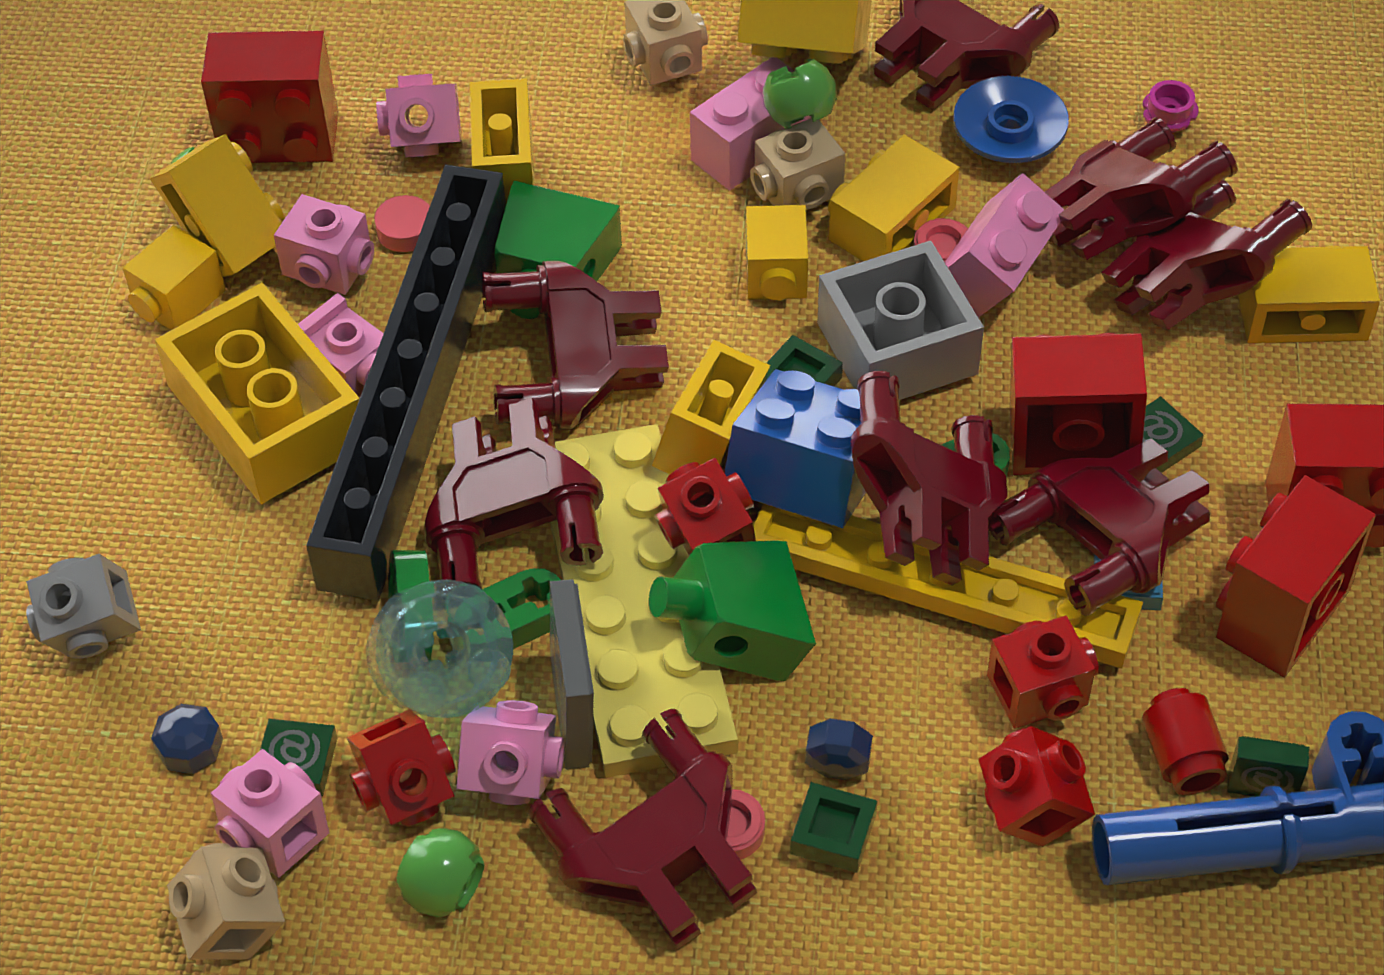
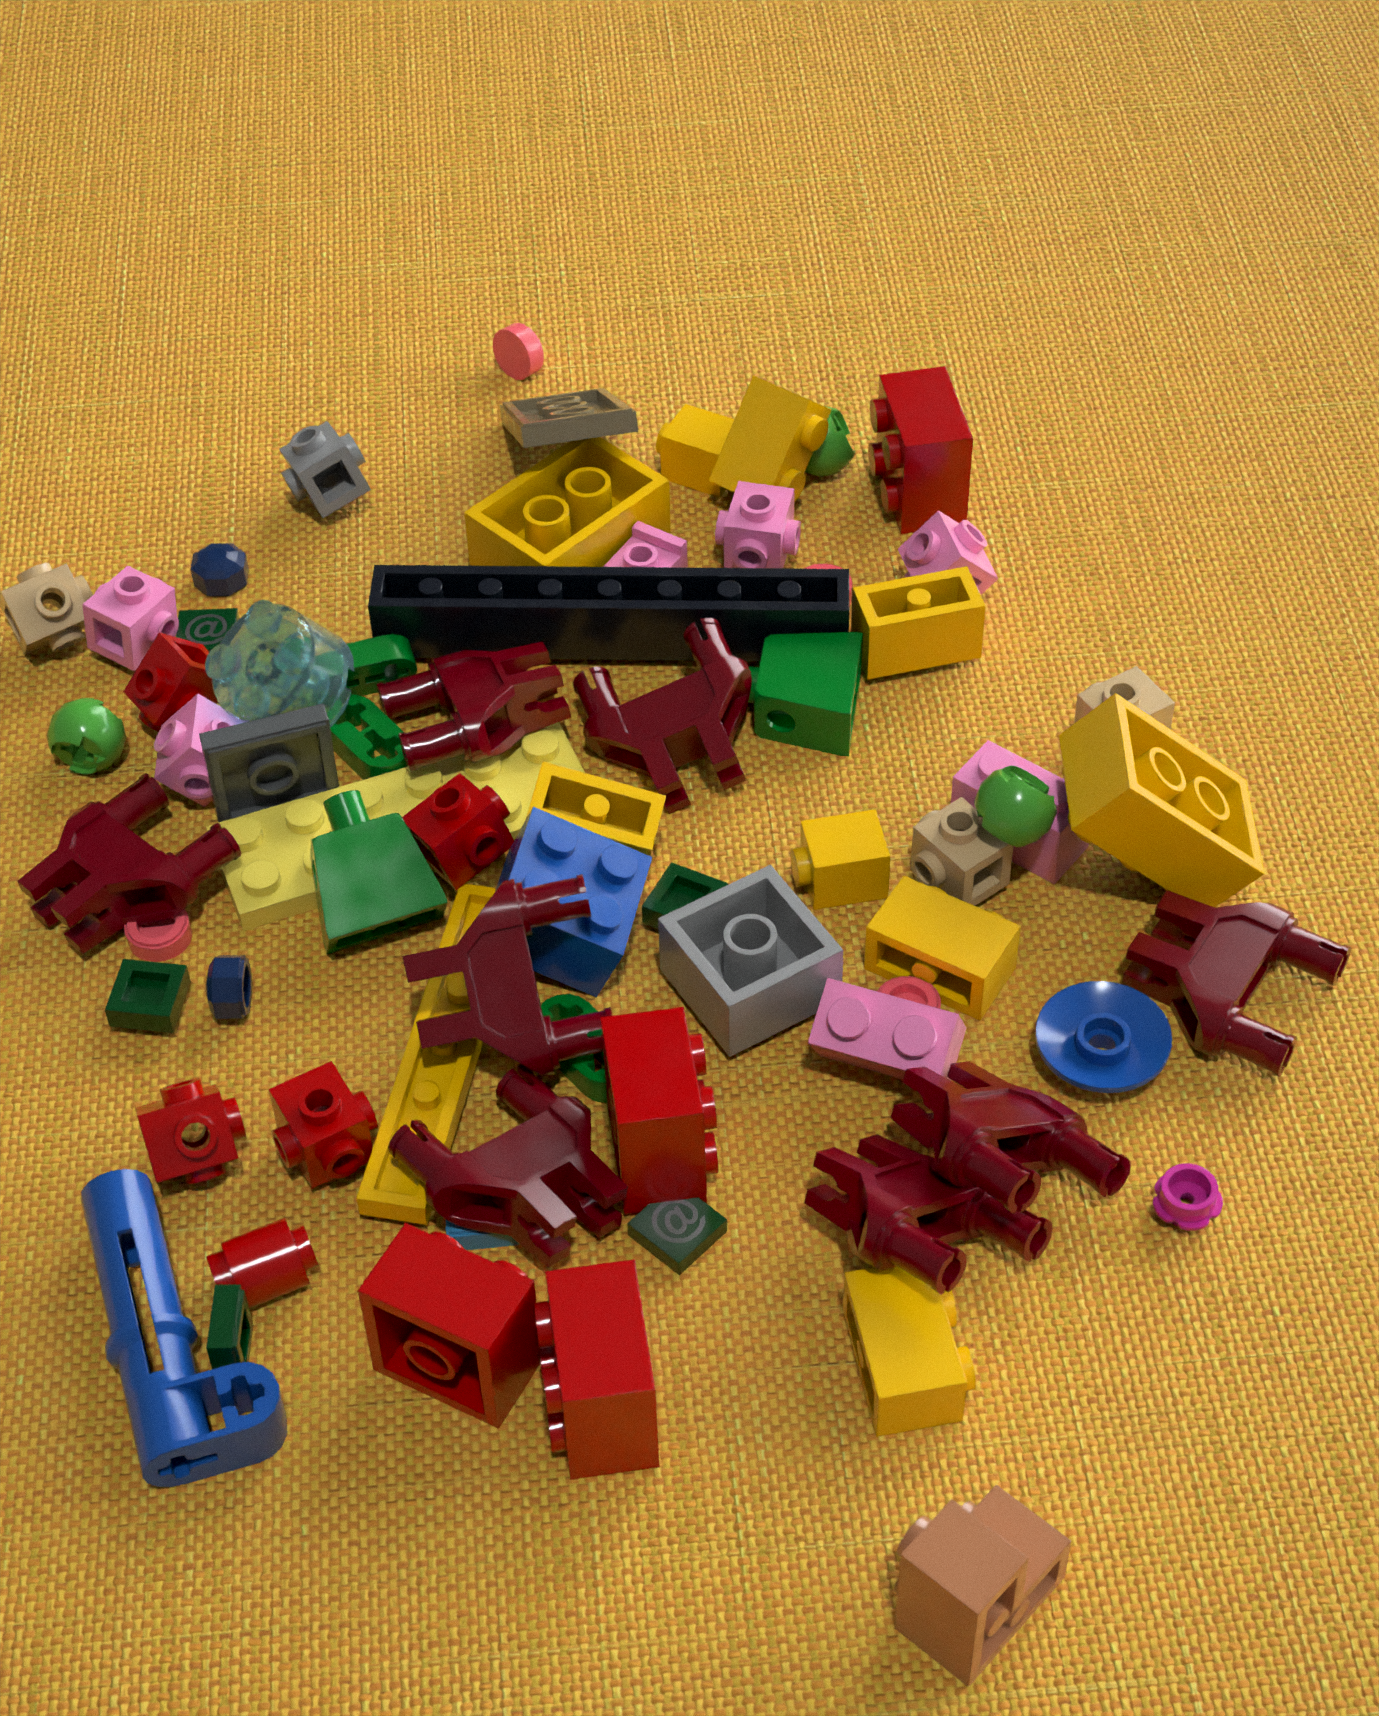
camera: 80 degrees right, 5 degrees down
(119, 360) = (567, 417): none -> dark tan tile

